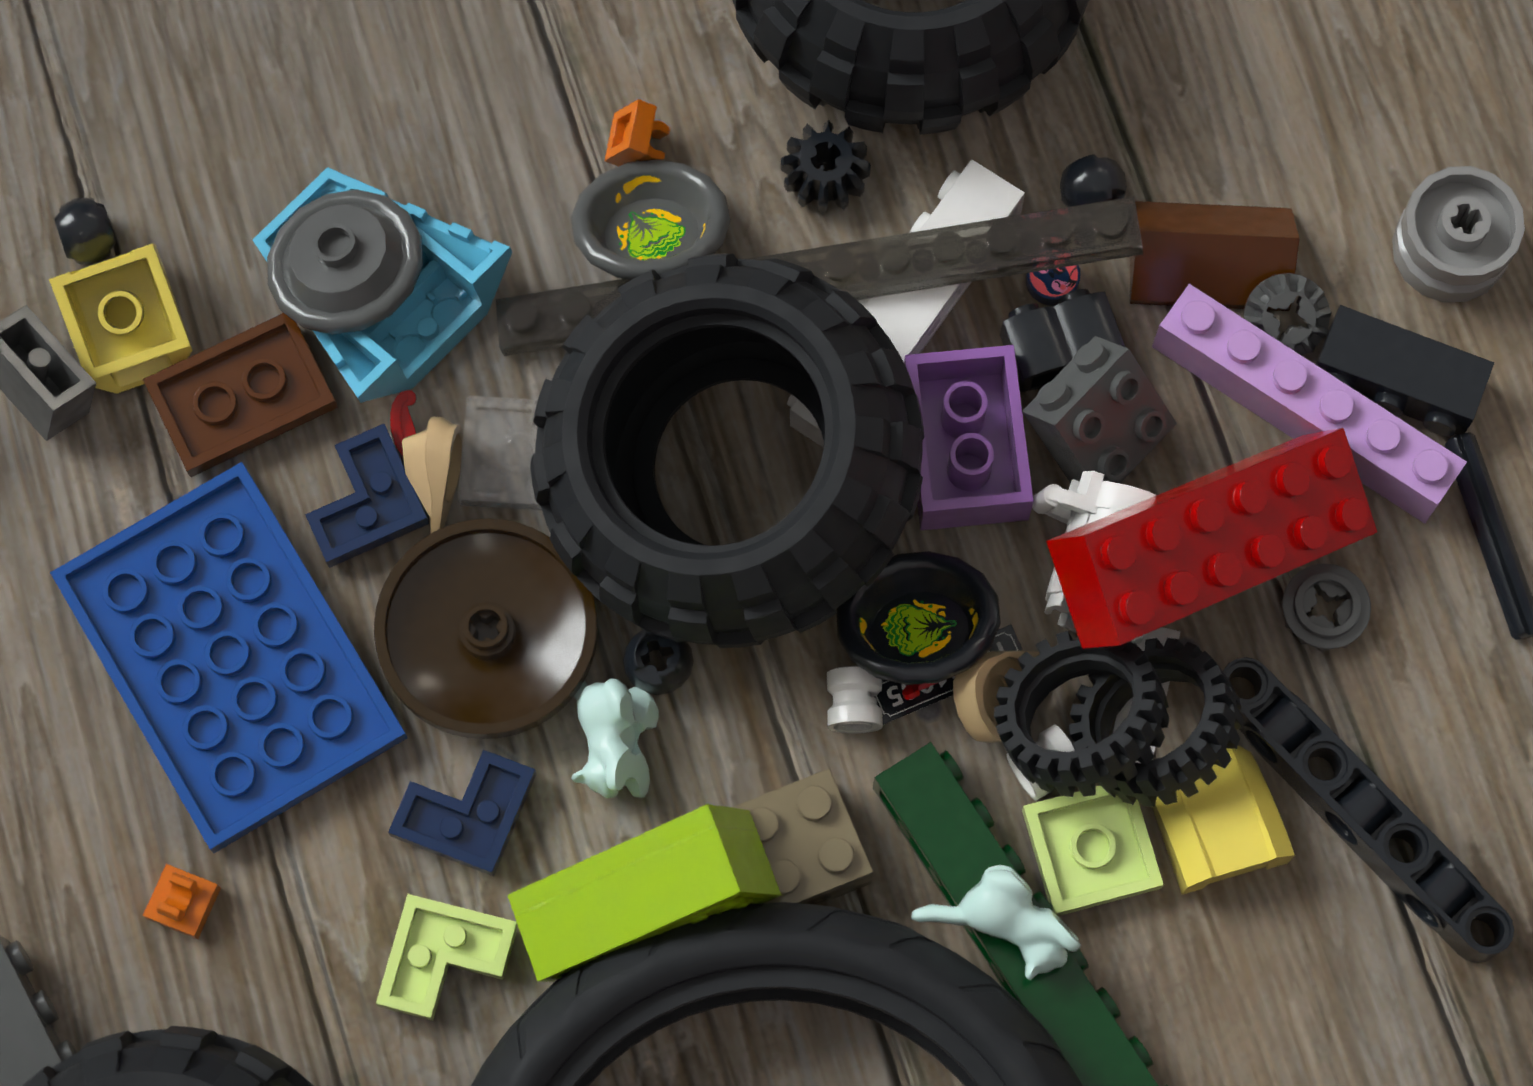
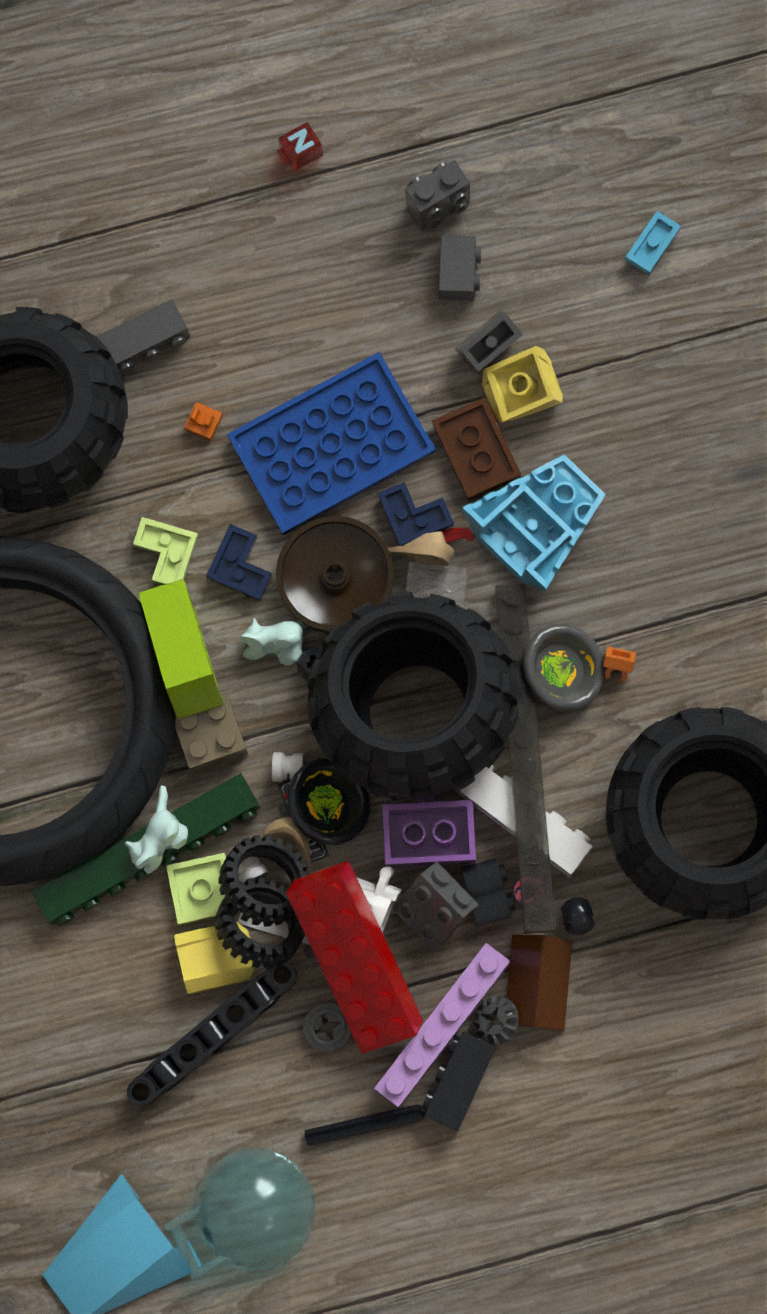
camera: 100 degrees right, 5 degrees up
(85, 230) = (572, 365): black piece -> none
(344, 262) = (543, 501): dark grey piece -> none
(829, 149) = (585, 763): black gear -> none
(1458, 234) = (552, 1108): light grey wheel -> none

